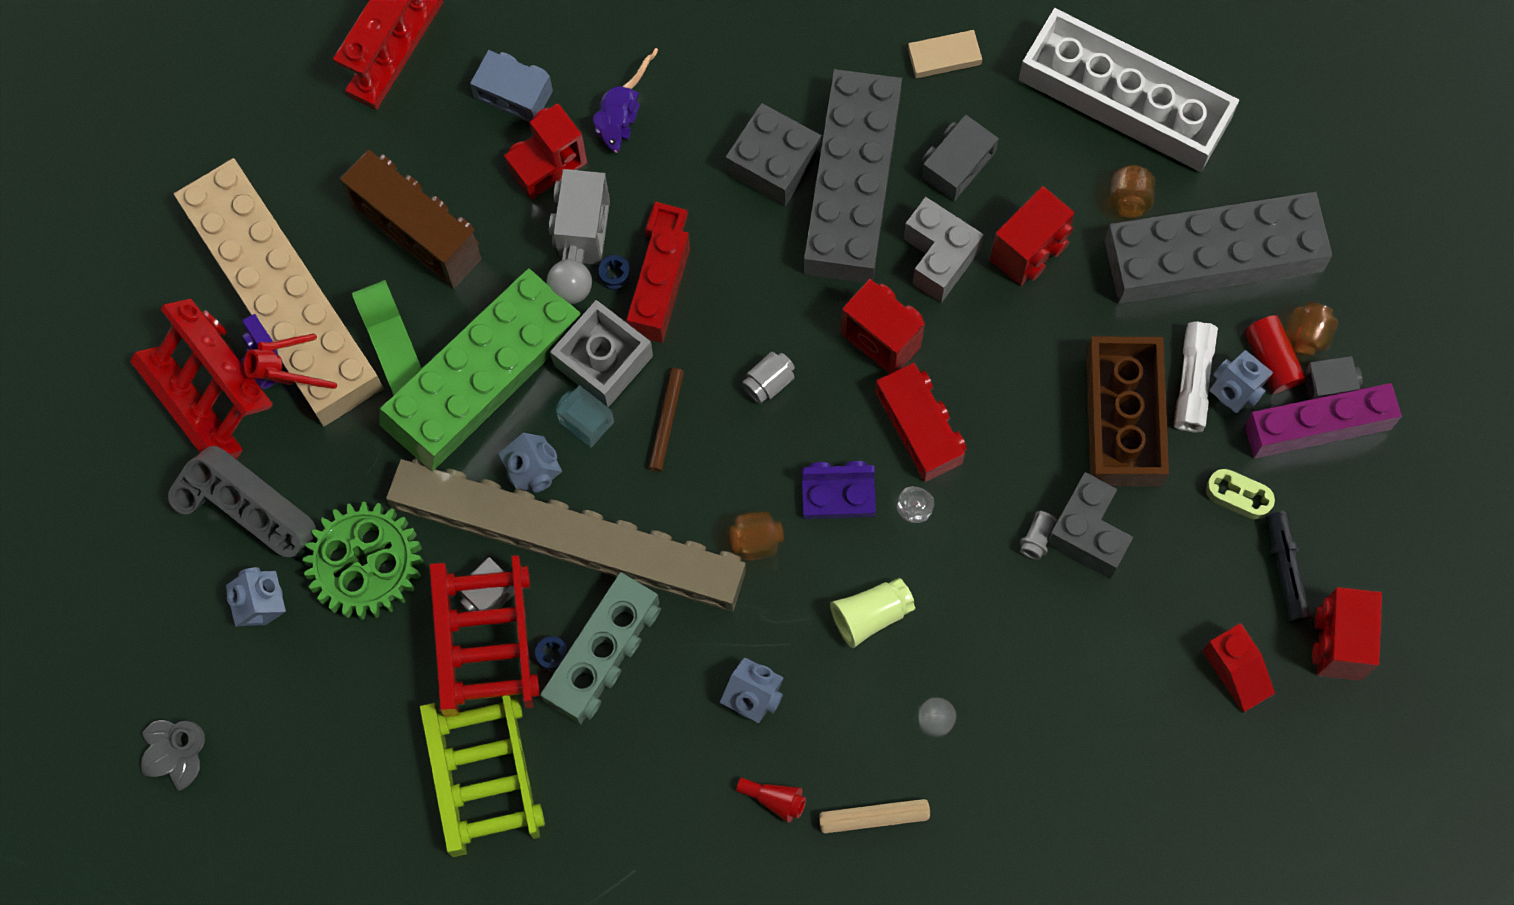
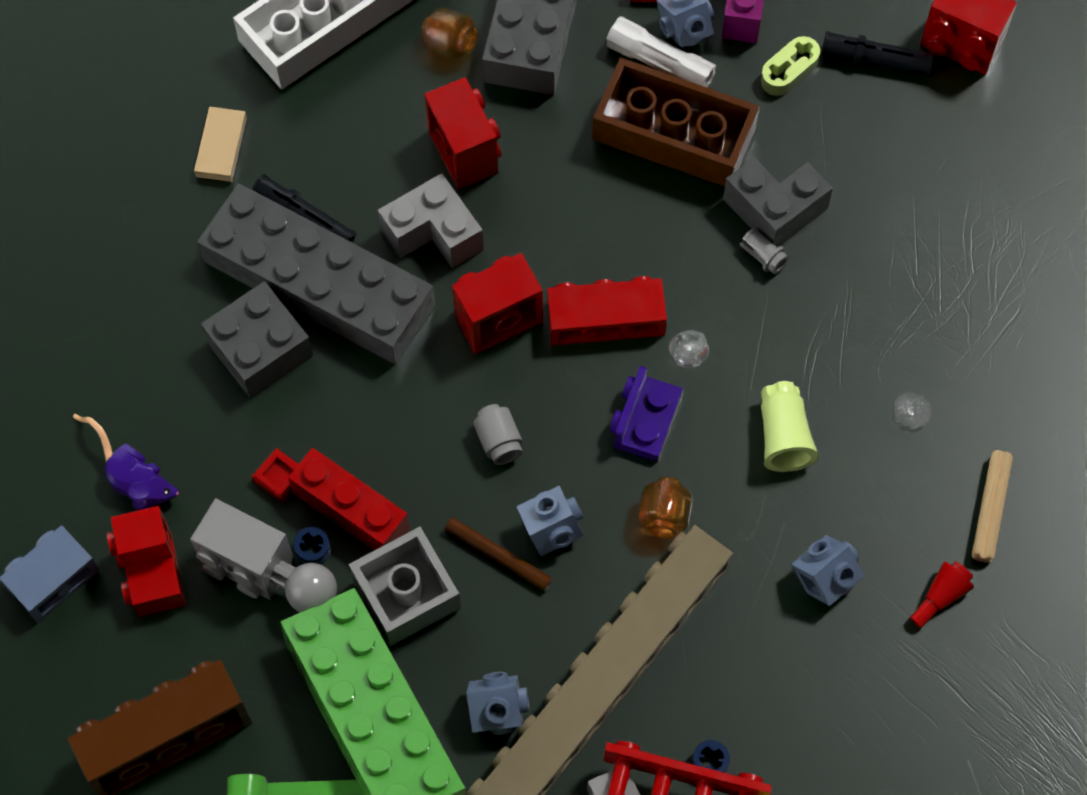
camera: 70 degrees left, 5 degrees down
(584, 415) = (462, 631): clear light blue brick -> none
(623, 596) = (728, 727): sand green brick -> none
(705, 446) = (551, 520): none -> sand blue brick
(910, 131) = (292, 200): none -> black pin
(959, 157) = (342, 170): dark grey brick -> none
(1240, 667) = (957, 129): red slope -> none

